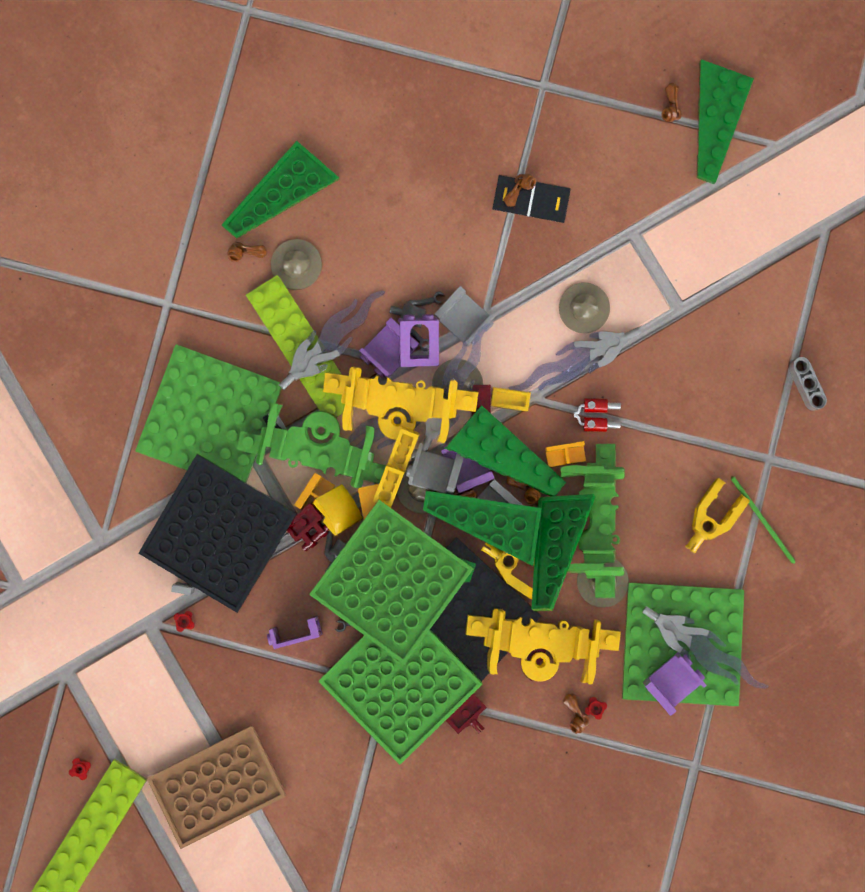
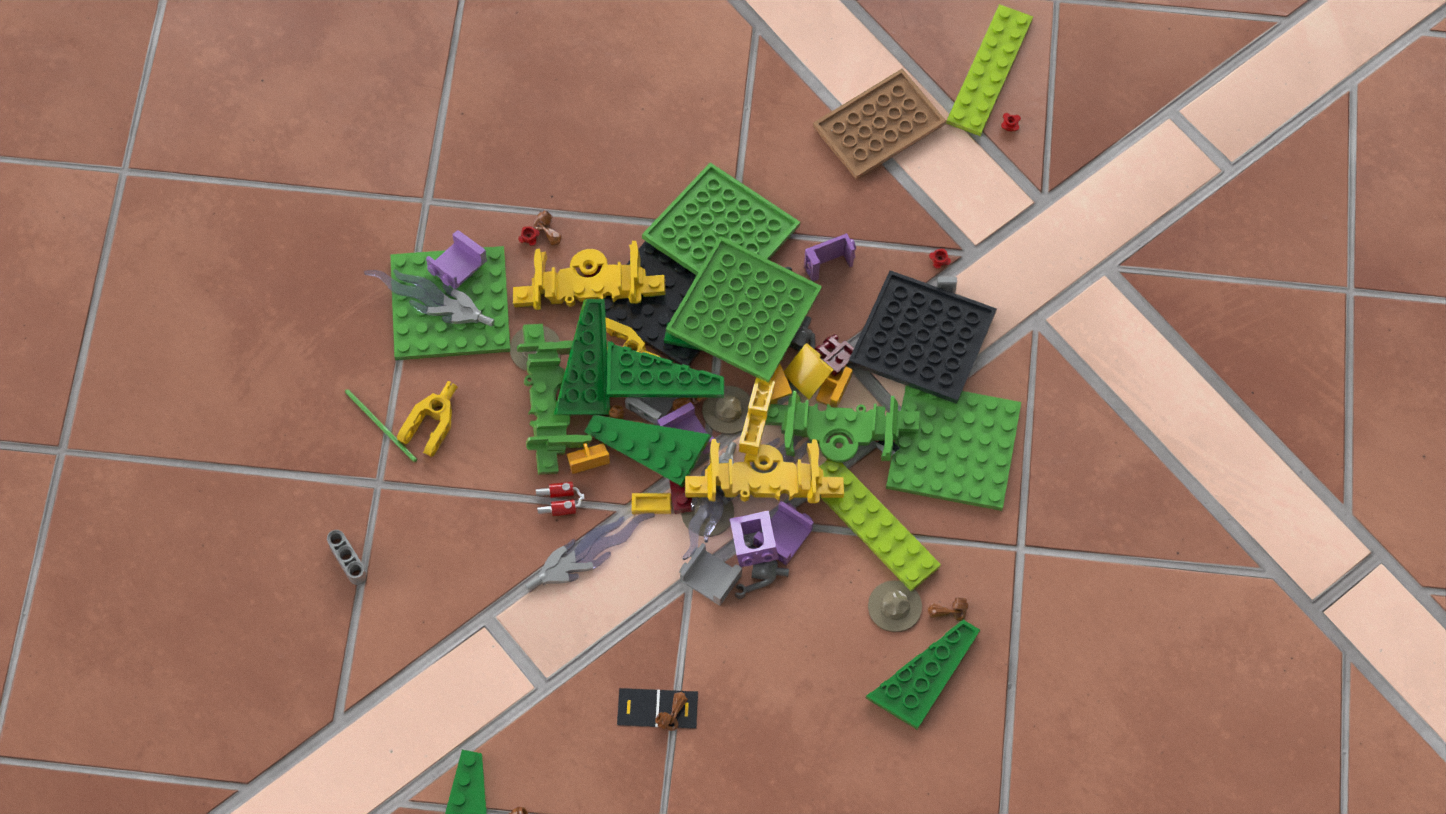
camera: 170 degrees right, 20 degrees down
(326, 348) = (847, 520): piece -> none
(434, 471) = (718, 419): light grey panel -> none
(467, 715) = (650, 211): dark red plate -> none
(584, 307) = (586, 604): dark tan hat -> none

